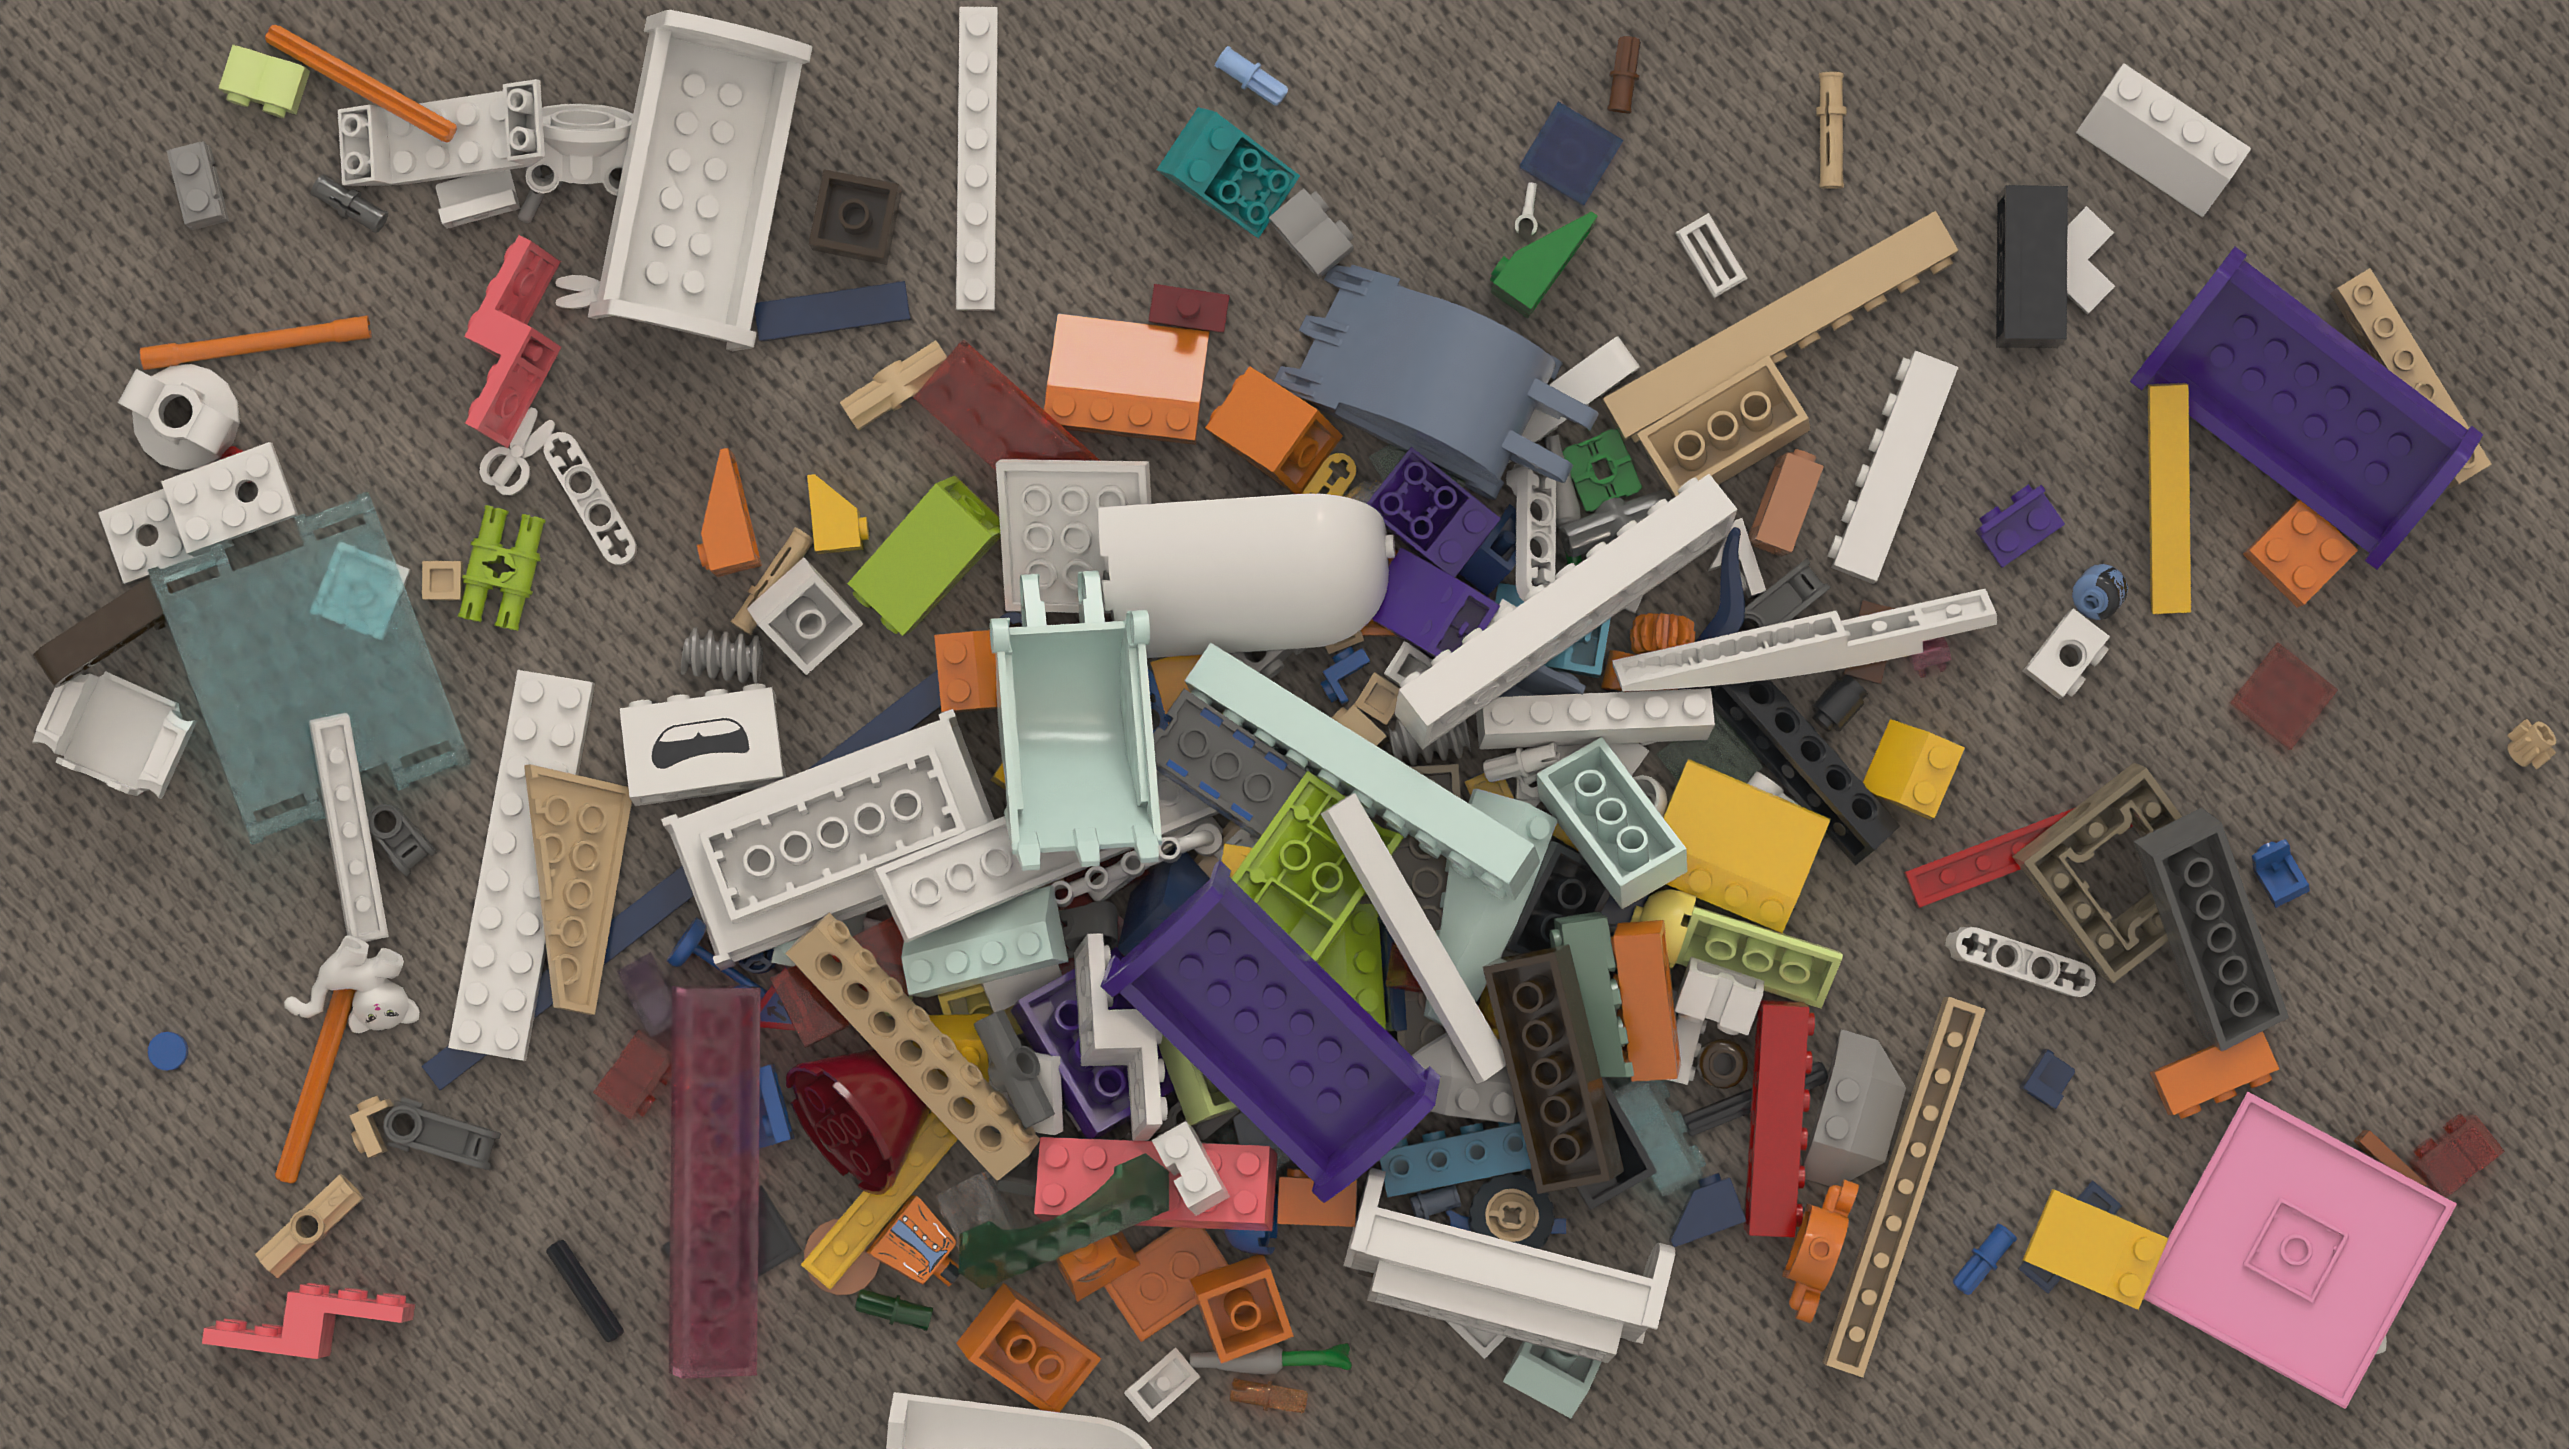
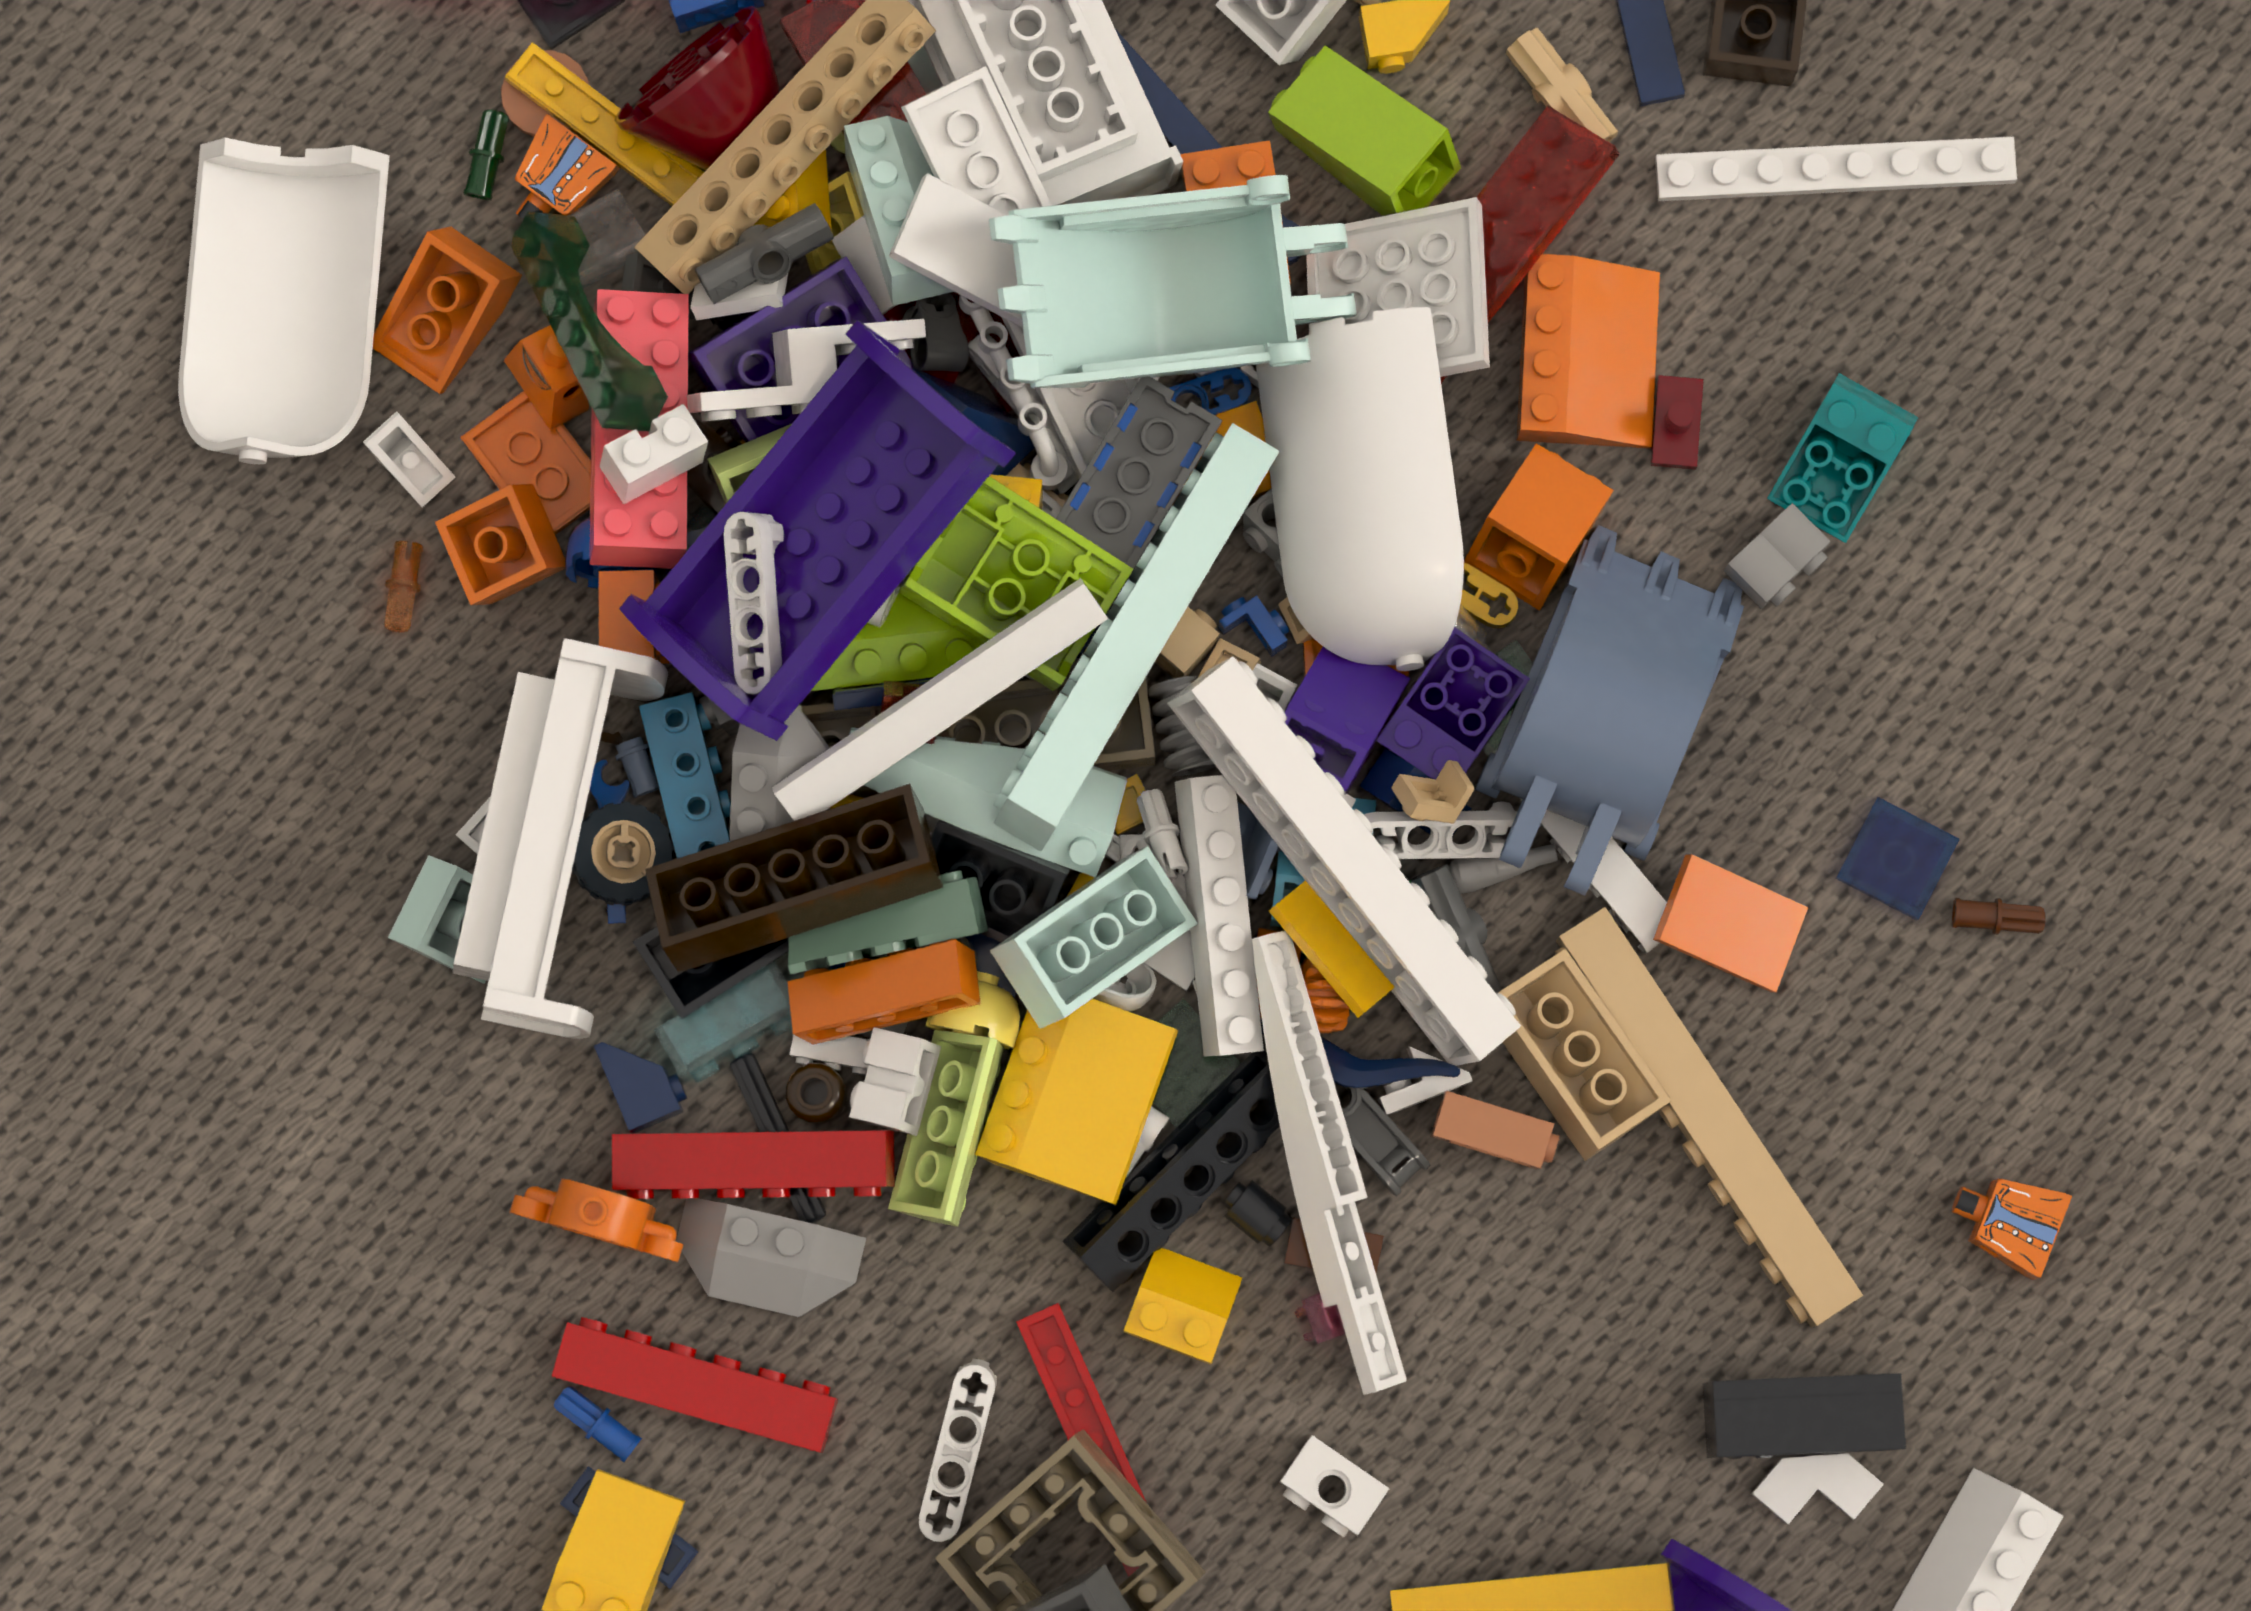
camera: 85 degrees right, 5 degrees down
(1027, 905) = (951, 243): none -> white tile
(1251, 76) = (1959, 477): light blue axle -> none
(1273, 1358) = (446, 590): piece -> none
(1325, 1098) = (758, 536): none -> white beam
(1508, 532) = (1434, 798): none -> tan bracket
(1528, 208) = (1825, 812): white hand -> none
(1535, 267) = (1758, 821): green slope -> none
(1620, 295) = (1730, 923): none -> orange tile
(1623, 477) = (1543, 927): green piece -> none
(1631, 626) = (1331, 949): none -> yellow tile
(1727, 283) = (1755, 1054): white tile -> none
(1831, 129) = (1965, 1167): tan pin -> none
(1879, 82) = (2014, 1222): none -> orange torso
(1894, 466) = (1547, 1263): white brick -> none
(1903, 1186) = (679, 1318): tan brick -> none
(1959, 1175) = (694, 1386): none -> red brick
(2019, 526) = (1487, 1421): dark purple bracket -> none
(2048, 1079) = (817, 1490): dark blue panel -> none
(2103, 589) = (1412, 1522): medium blue head -> none

